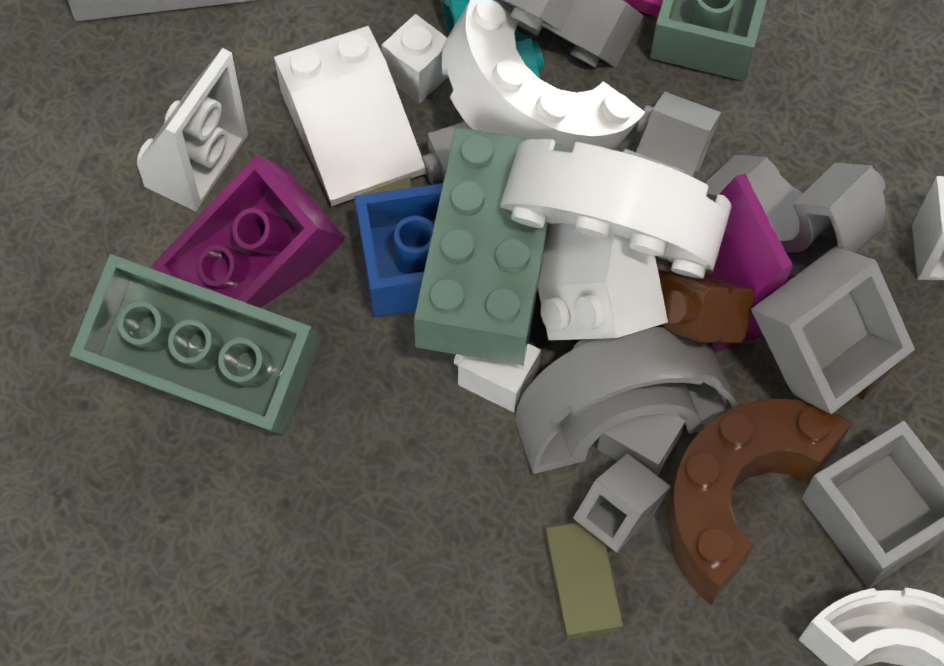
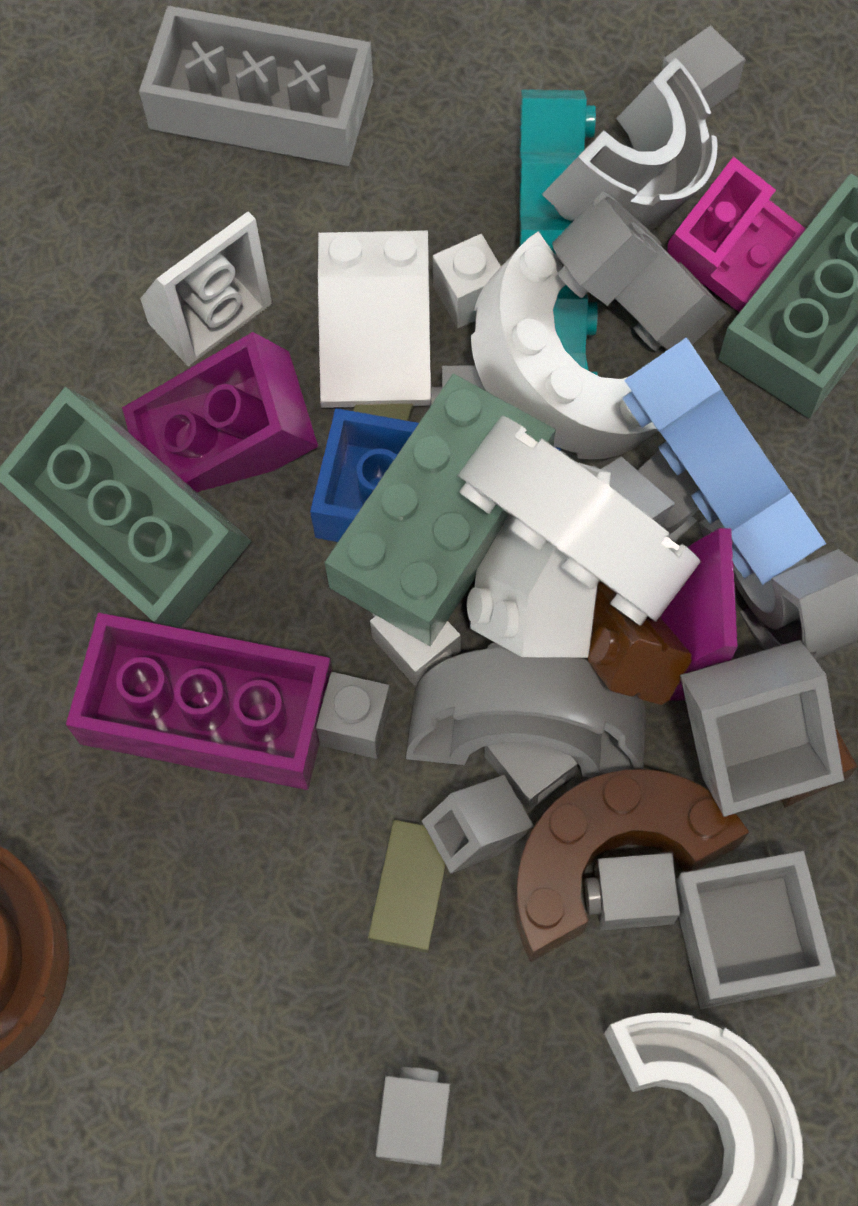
camera: 25 degrees right, 5 degrees up
(339, 486) = (200, 700): none -> magenta brick
(476, 451) = (354, 715): none -> light grey brick
(707, 128) = (723, 460): none -> light blue brick
(776, 510) = (633, 892): none -> light grey brick

